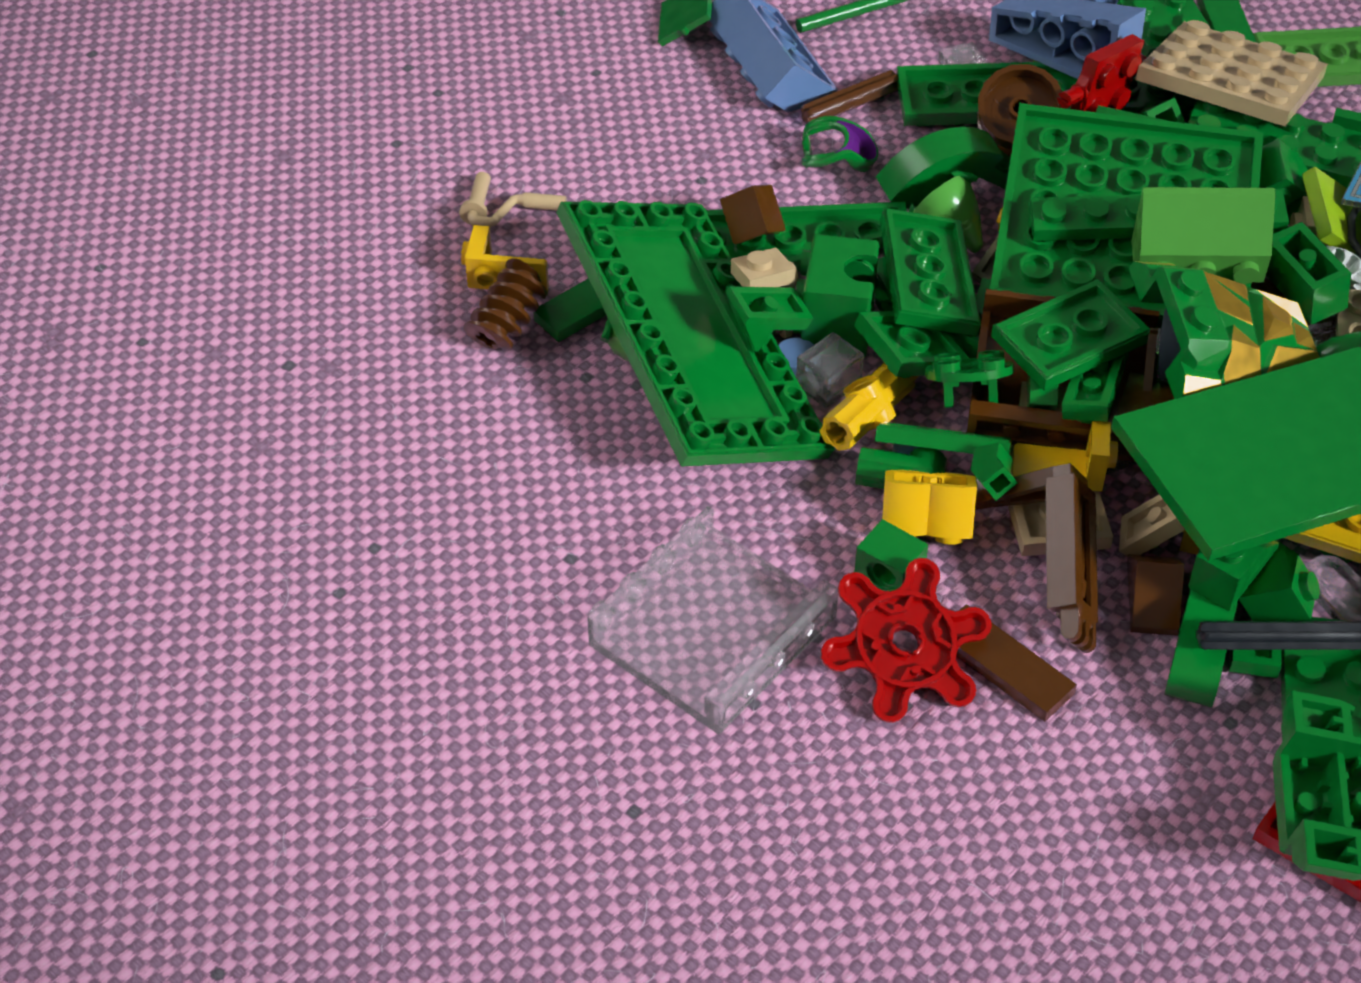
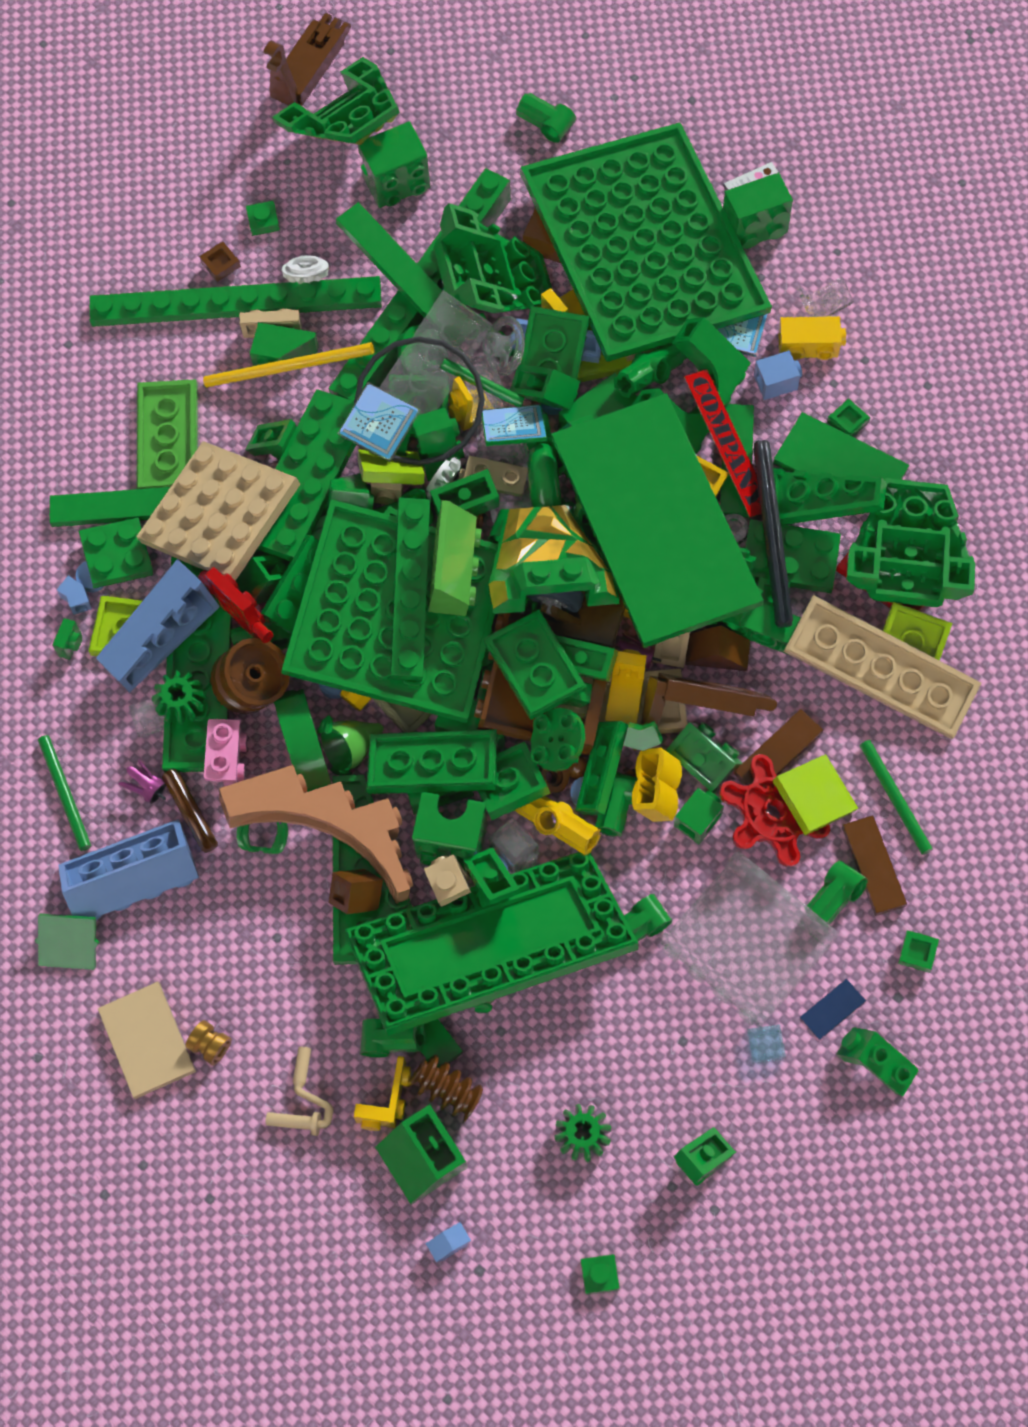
camera: 85 degrees left, 20 degrees up
(267, 471) = (600, 1274): none -> green plate
(321, 326) = (448, 1242): none -> medium blue piece
(405, 561) = (704, 1156): none -> green slope
(431, 299) = (421, 1154): none -> green slope
(445, 443) = (595, 1133): none -> green gear
(530, 770) = (879, 1057): none -> green bracket
(563, 643) = (766, 1044): none -> clear light blue tile
(565, 123) = (208, 1043): none -> pearl gold wheel
(566, 266) = (379, 1045): none -> green piece
(576, 82) = (146, 1040): none -> tan tile
(616, 729) = (832, 1009): none -> dark blue sticker
(701, 827) = (918, 951): none -> green plate
(734, 504) = (648, 917): none -> green piece
(794, 727) = (839, 887): none -> green piece
(837, 778) = (874, 864): none -> reddish brown tile
(855, 184) = (285, 799): none -> nougat arch
(873, 62) = (152, 785): none -> flat silver piece
(918, 108) = (224, 751): none -> bright pink bracket
(920, 398) = (561, 778): none -> reddish brown plate
(938, 694) = (815, 794): none -> lime tile
(950, 811) = (896, 797): none -> green bar
(979, 57) = (183, 707): none -> green gear
(989, 569) = (704, 755): none -> green bracket
(1128, 496) = (649, 651): none -> flat silver piece
(1159, 783) = (882, 667): none -> tan tile
(1214, 828) = (918, 629): none -> lime tile

